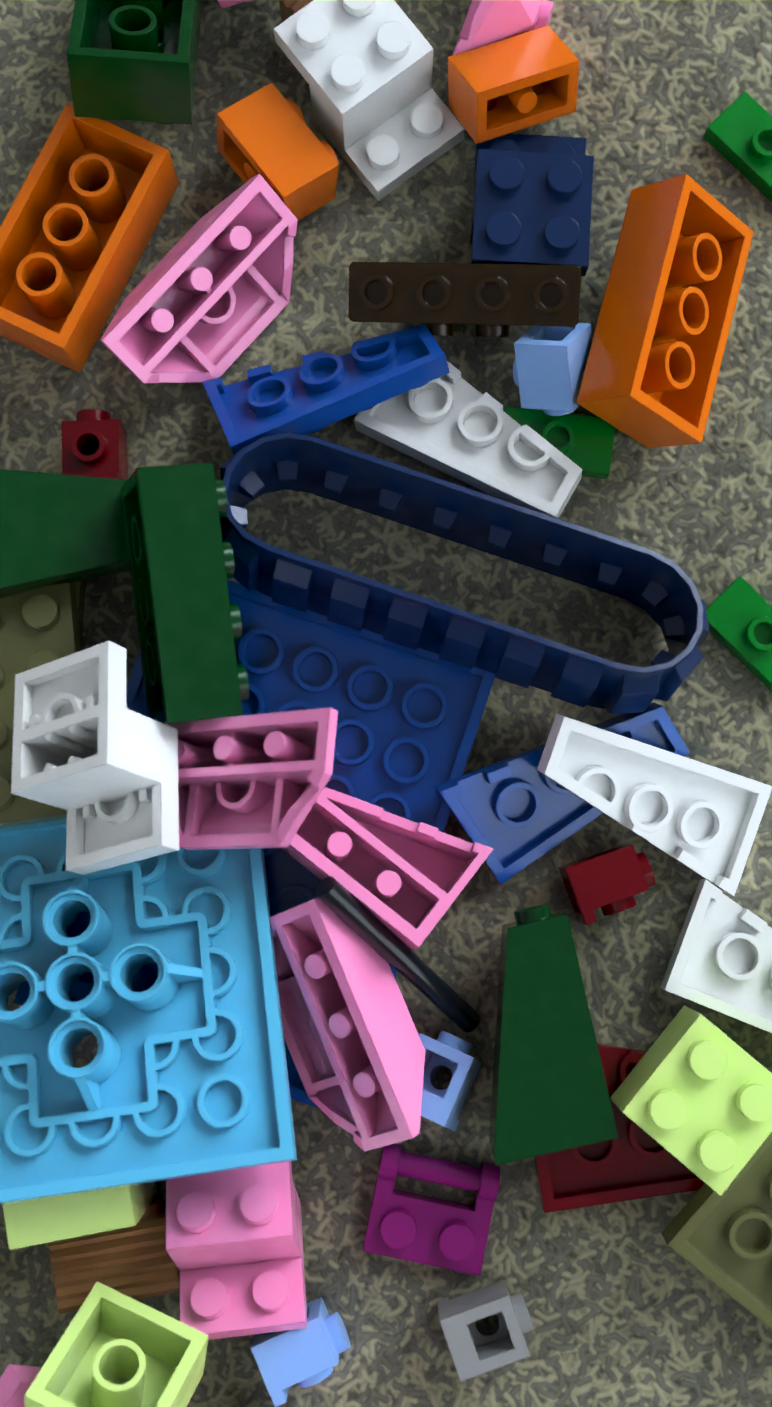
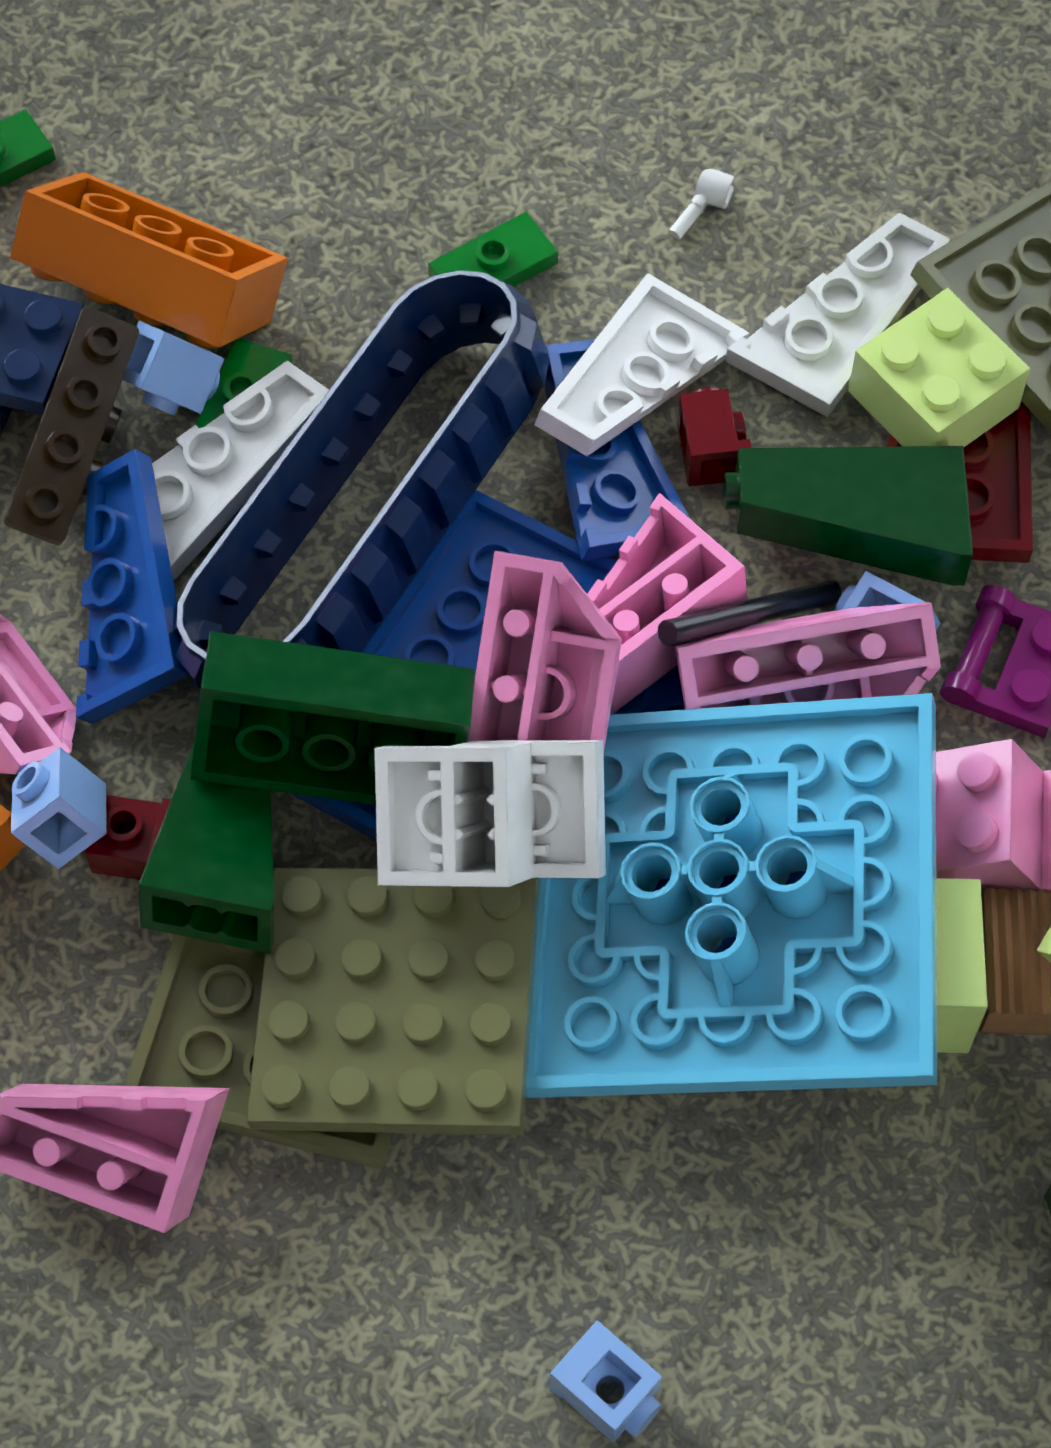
camera: 80 degrees left, 20 degrees down
(81, 385) = (58, 807): none -> light blue brick

